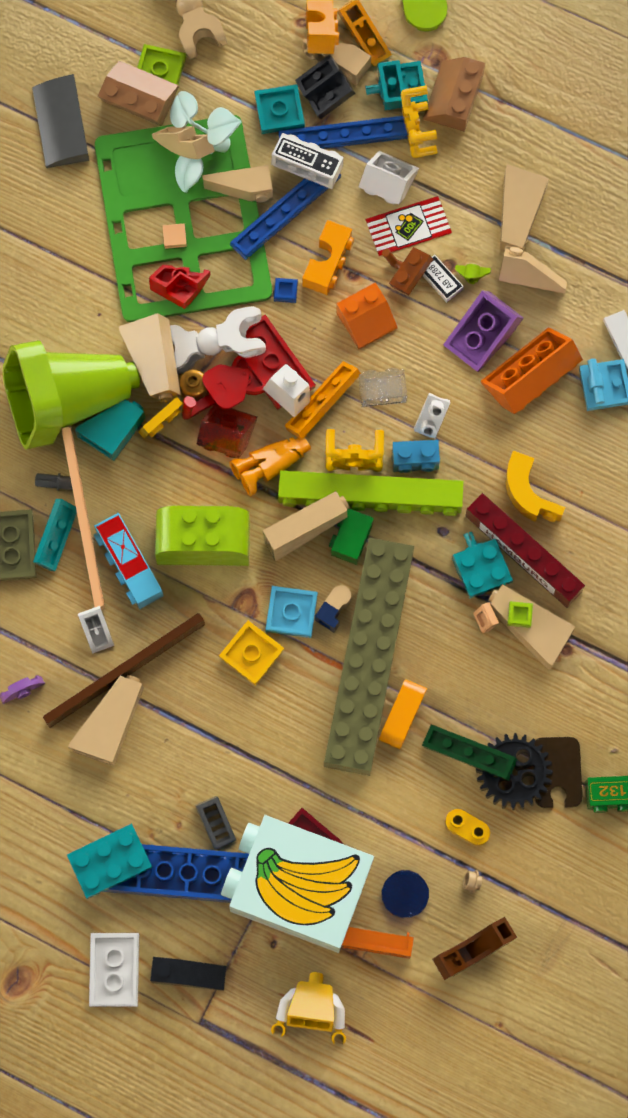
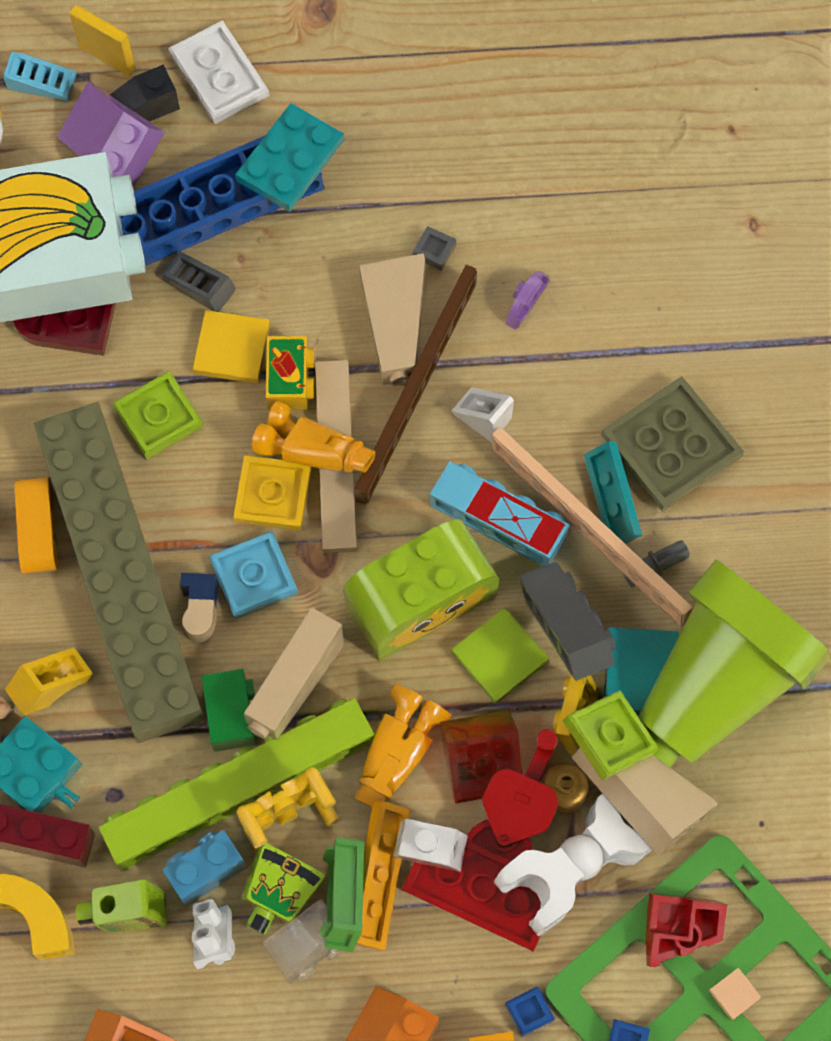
camera: 150 degrees right, 5 degrees down
(56, 757) = (436, 247): none -> dark grey tile
(134, 465) = (567, 620): none -> dark grey brick
(154, 384) = (611, 735): none -> lime tile
(178, 1027) = (102, 40): none -> yellow tile
(180, 482) = (500, 655): none -> lime tile
(197, 722) = (288, 371): none -> brick
(199, 657) = (336, 487): none -> tan tile
(211, 662) = (309, 443): none -> light orange piece
(214, 954) = (106, 125): none -> medium lavender slope
(220, 764) = (231, 347): none -> yellow tile
(247, 1049) = (31, 64): none -> medium azure slope
(290, 746) = (158, 415): none -> lime tile
(348, 392) = (344, 894): none -> bright green container
(381, 416) = (277, 887): none -> torso
(446, 611) = (47, 679): none -> yellow arch
(471, 457) = (125, 907): none -> lime torso

